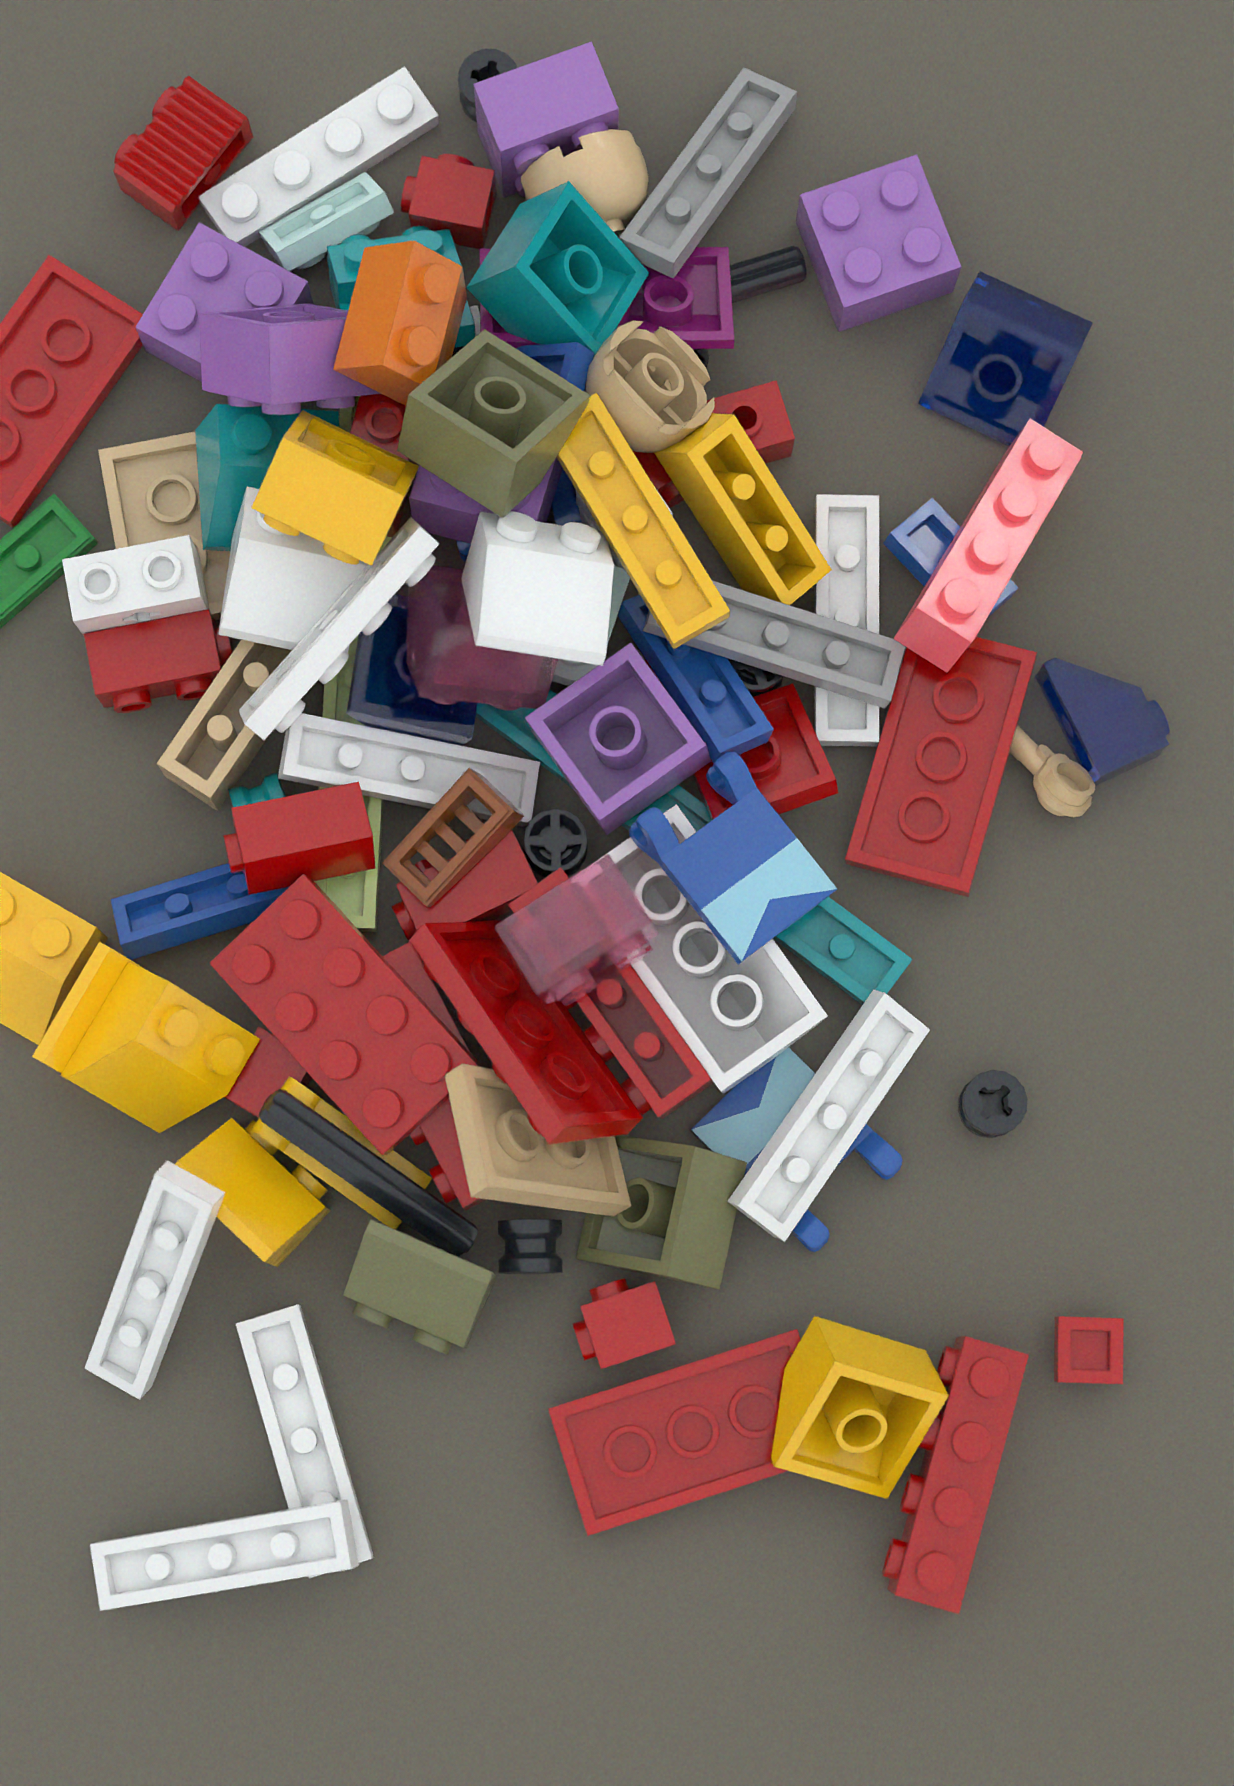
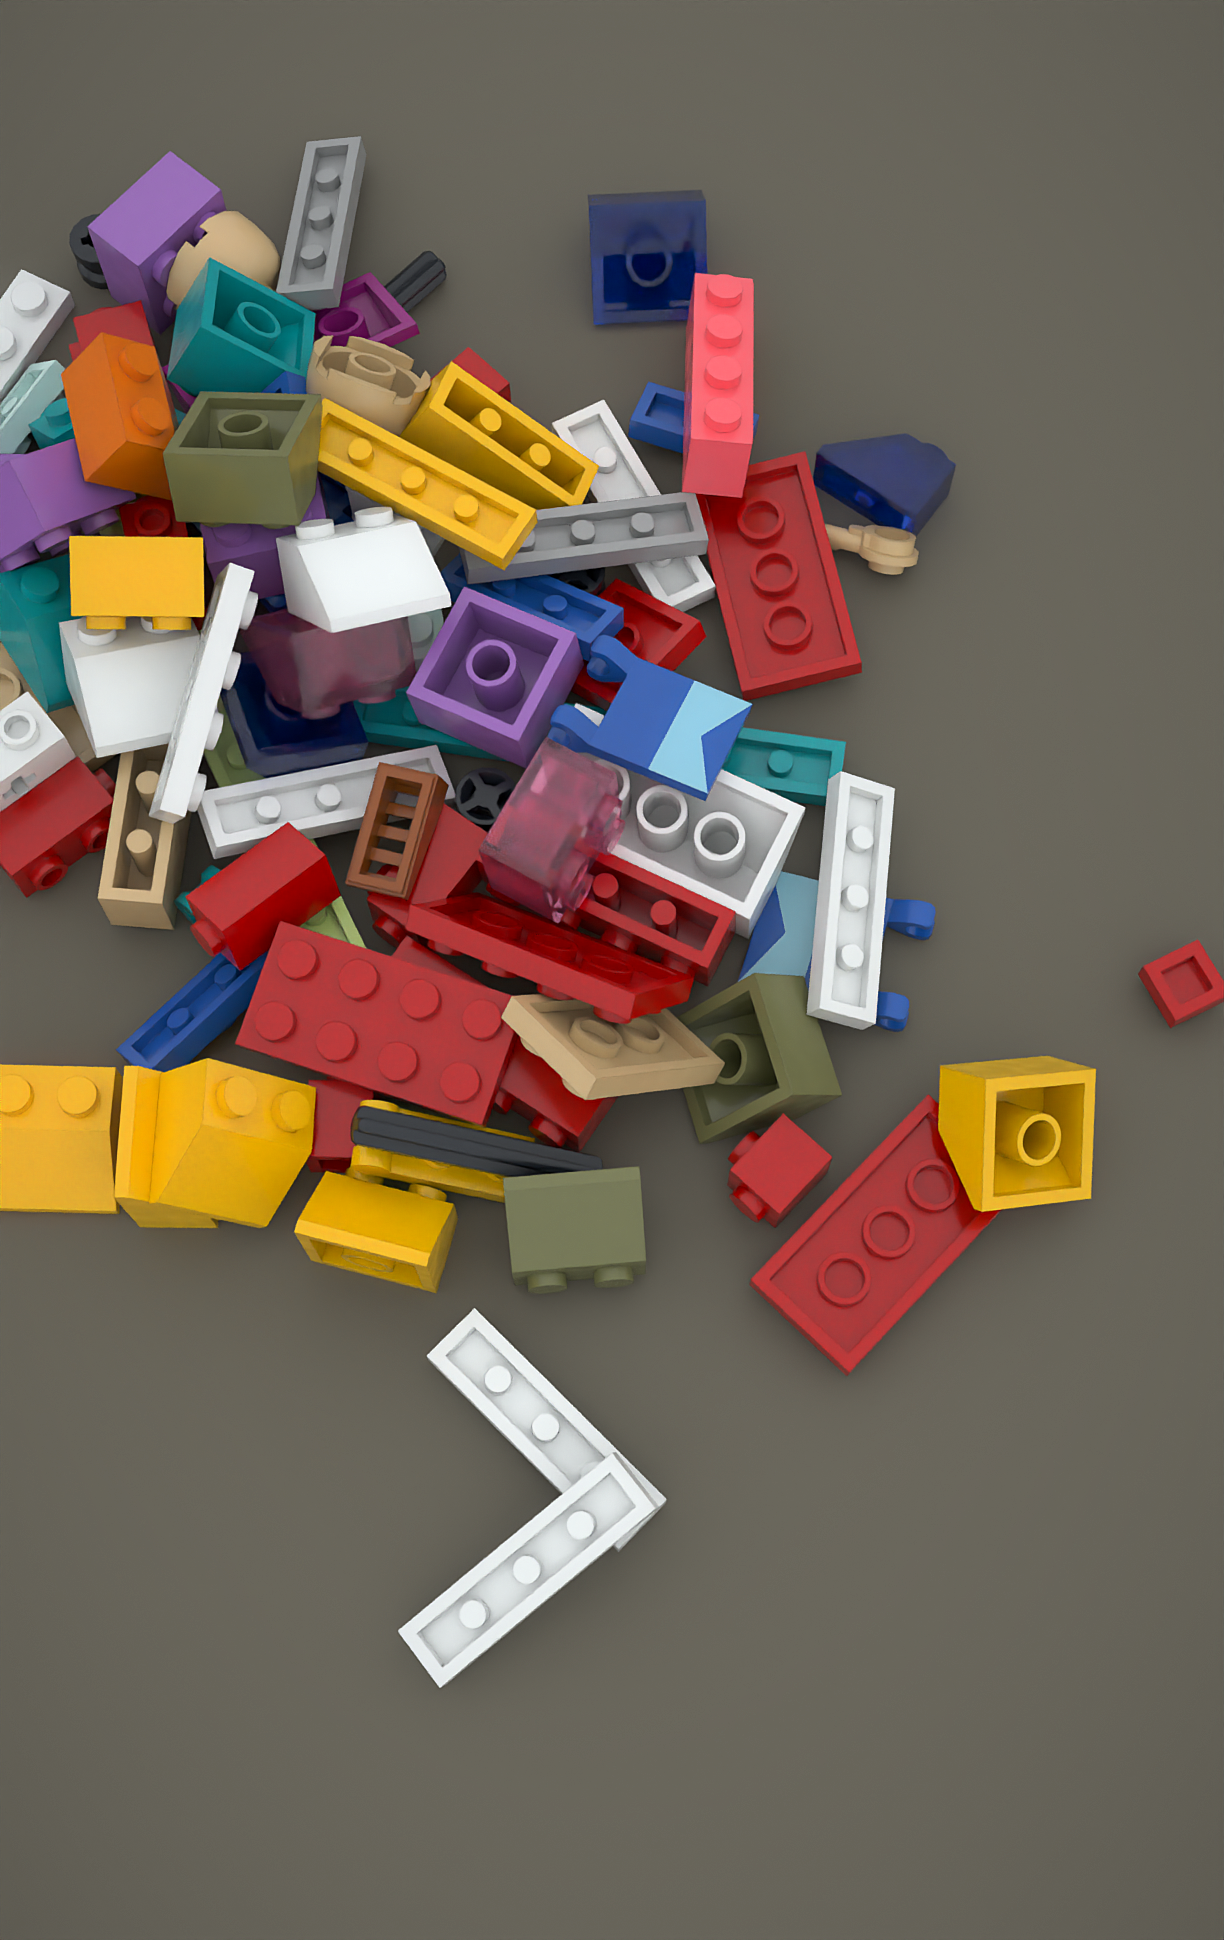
camera: 25 degrees left, 10 degrees down
(154, 1279) = (331, 1344): white plate -> none
(530, 1246) = (655, 1148): black wheel -> none
(877, 243) = (491, 214): medium lavender brick -> none
(956, 1475) = (1140, 1146): red brick -> none
(984, 1112) = (976, 840): black wheel -> none

